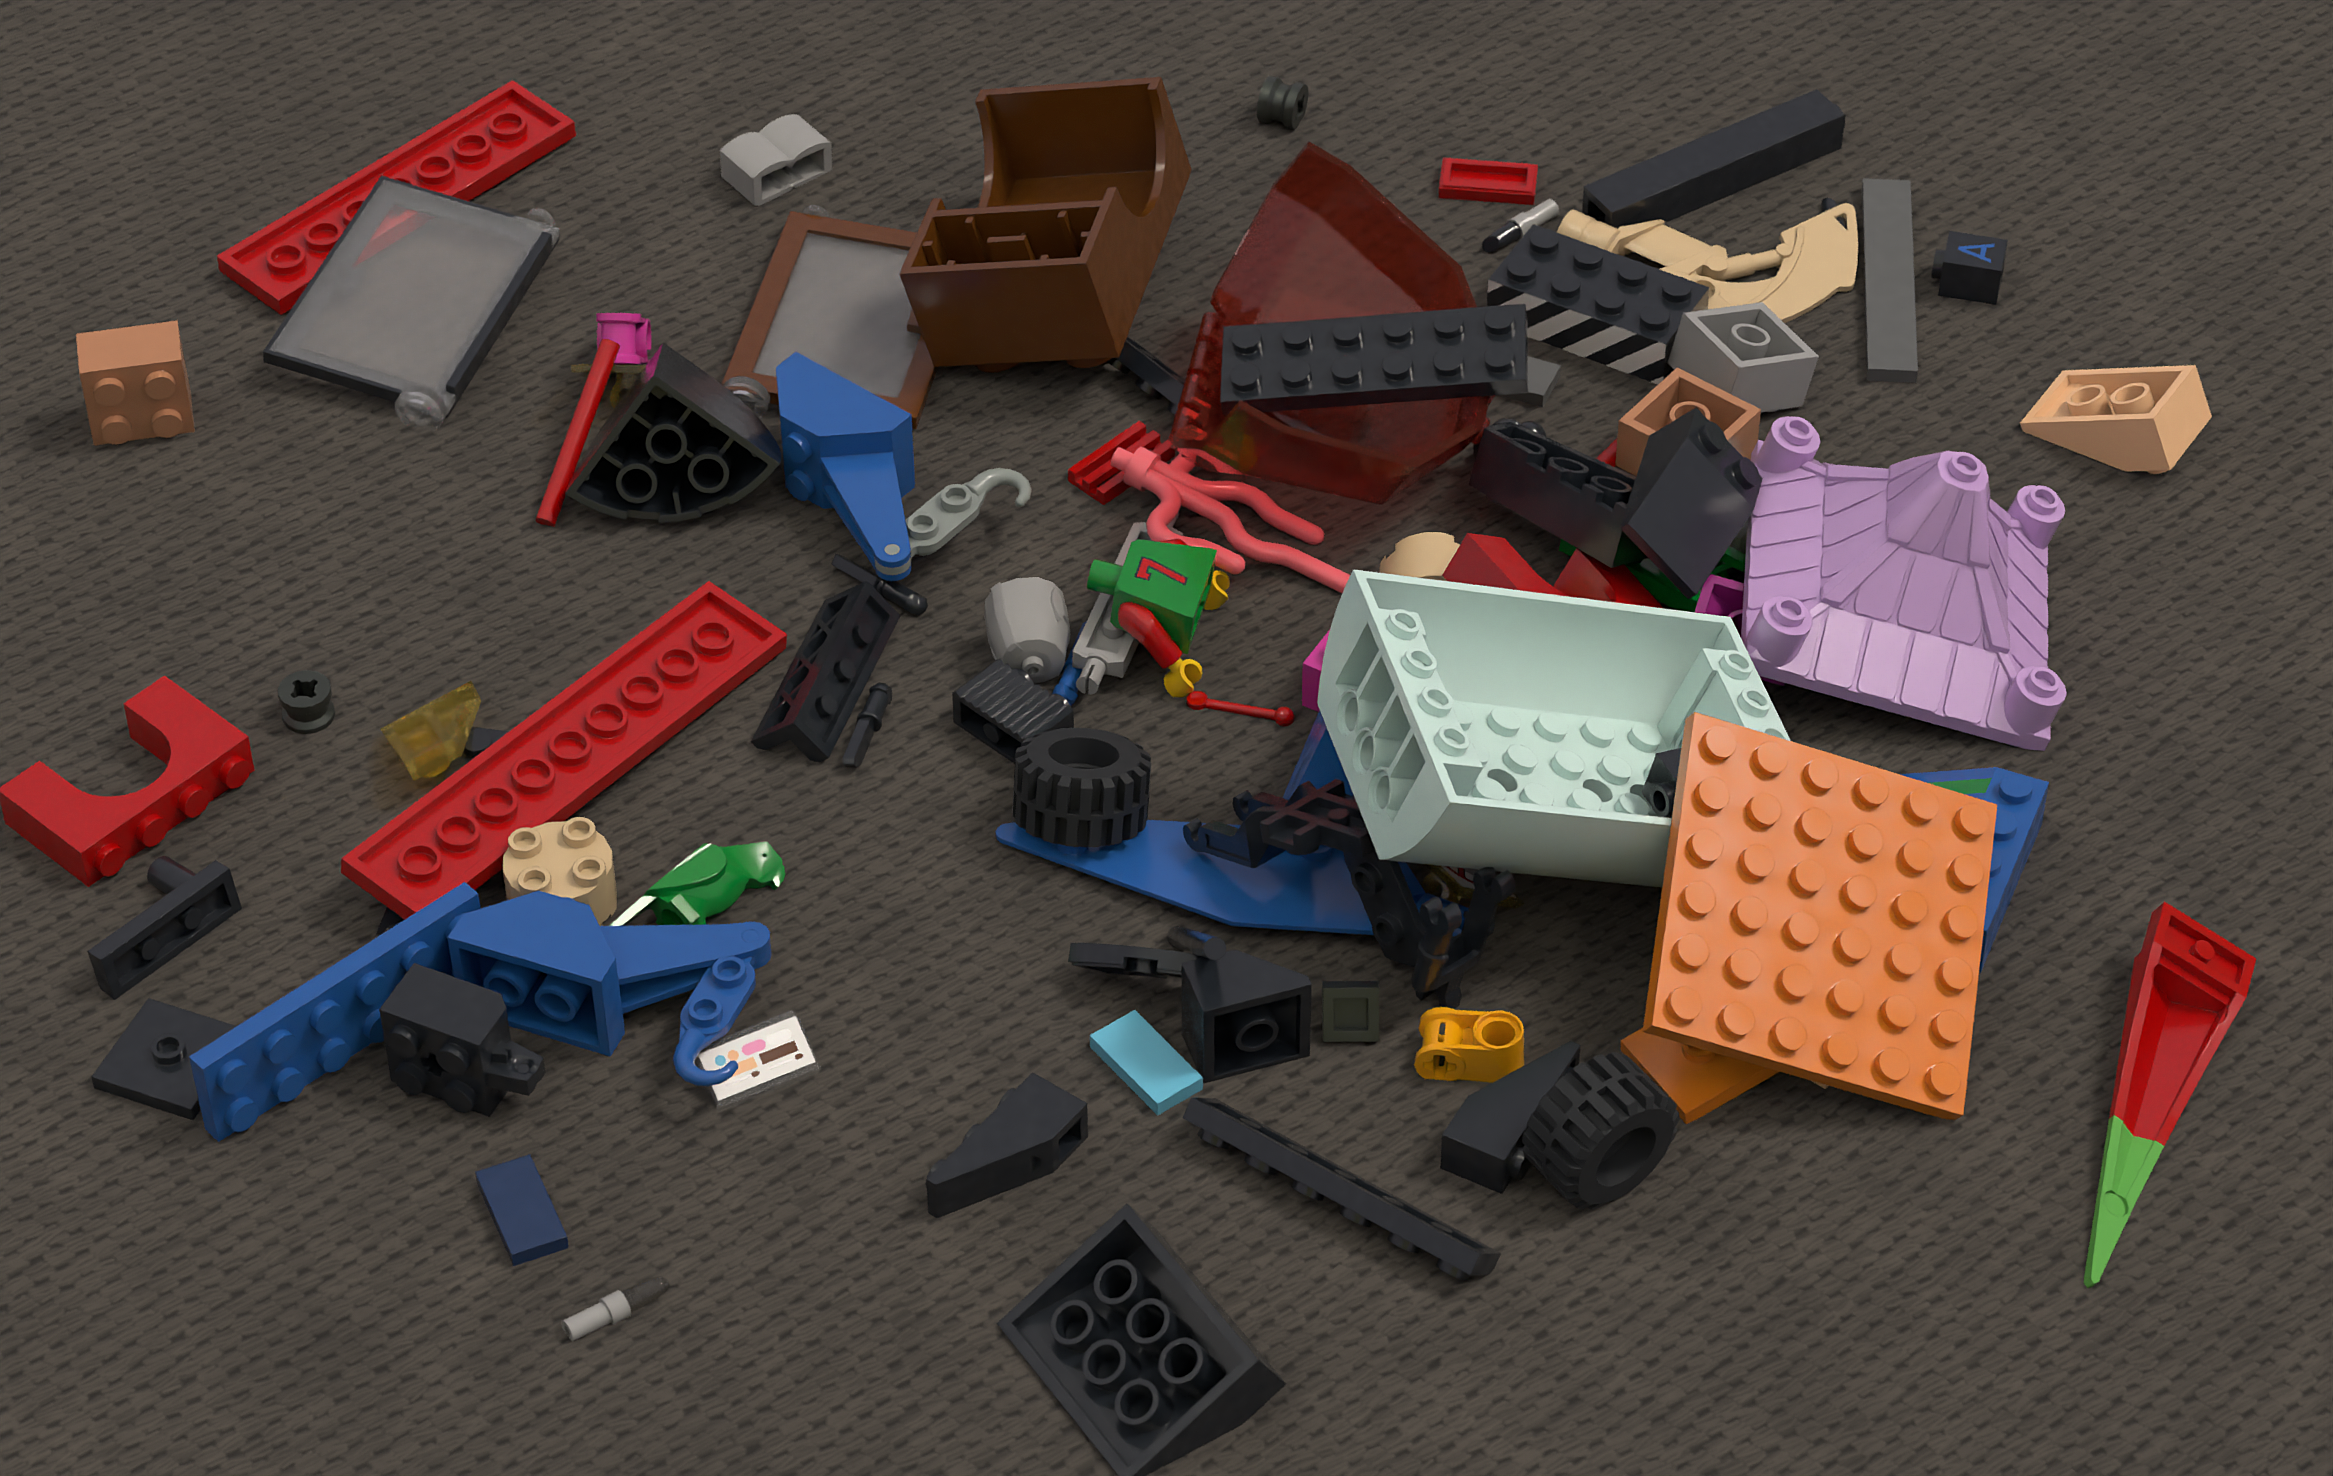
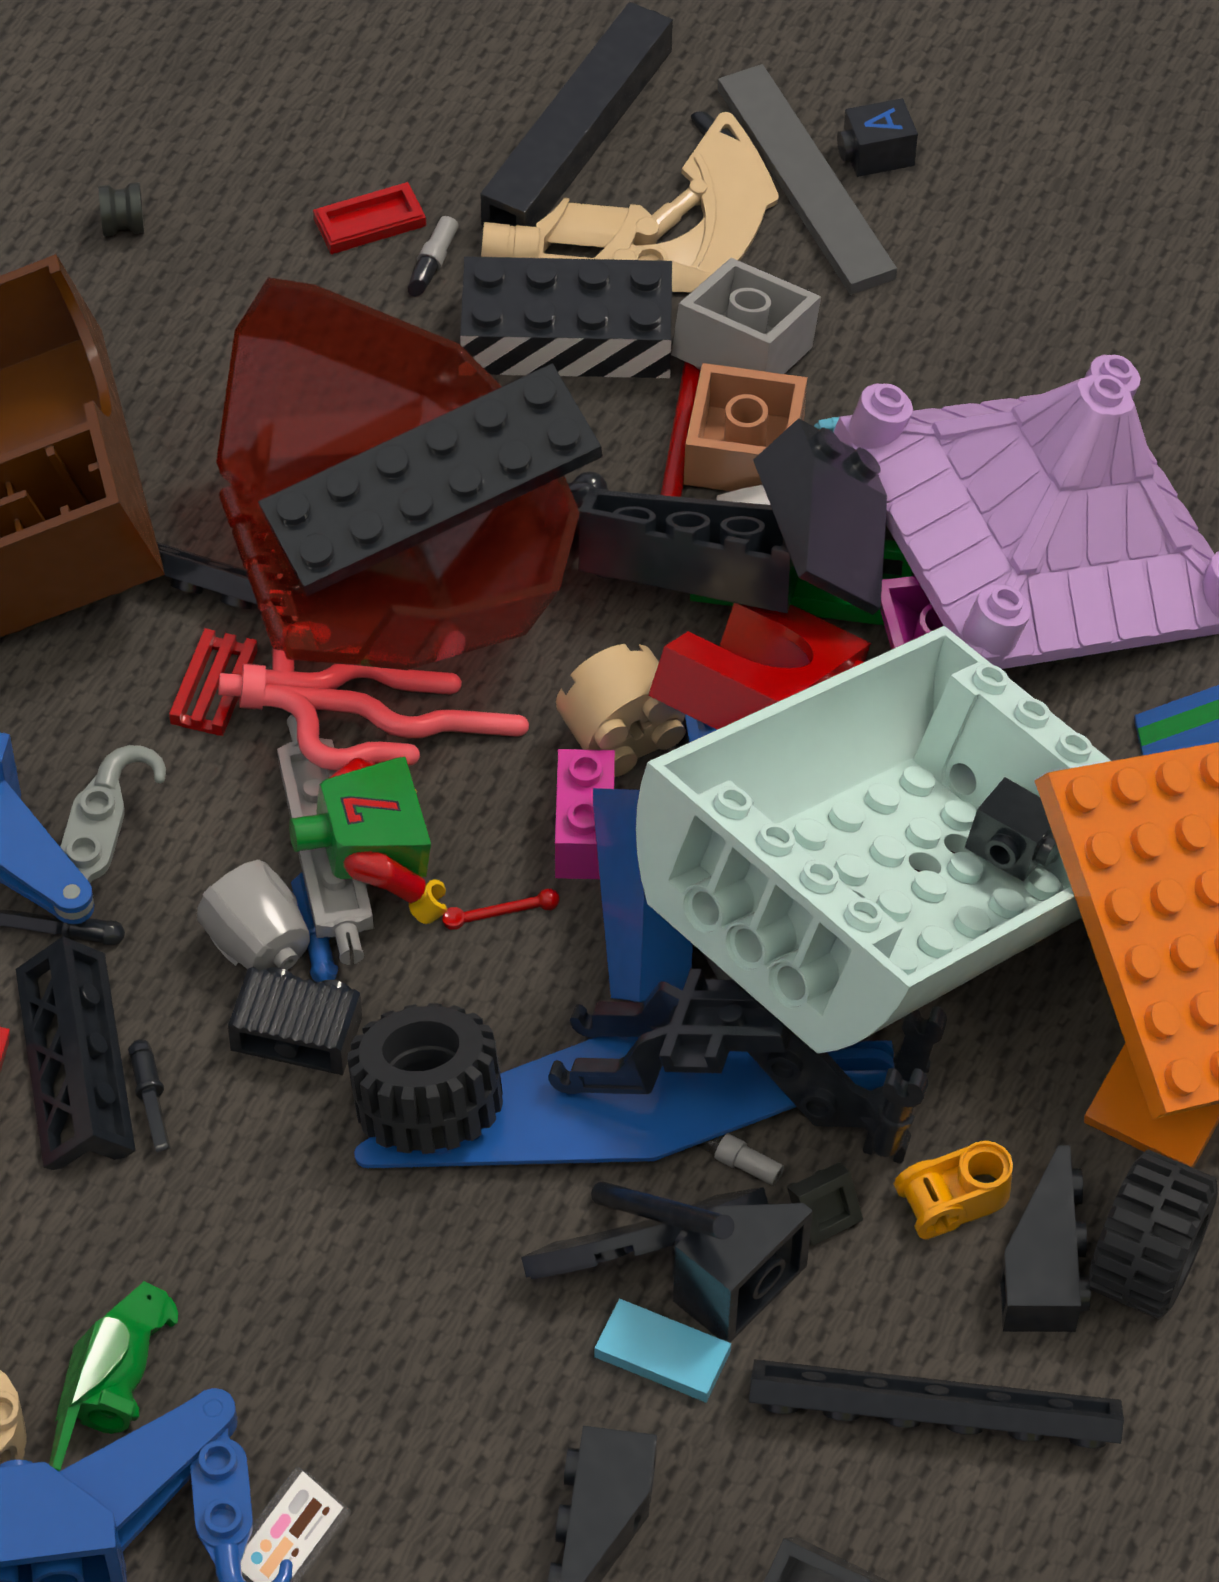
camera: 30 degrees left, 10 degrees up
(1308, 952) = (737, 1154): none -> light grey piece
(2123, 415) = (1105, 242): light nougat slope -> none

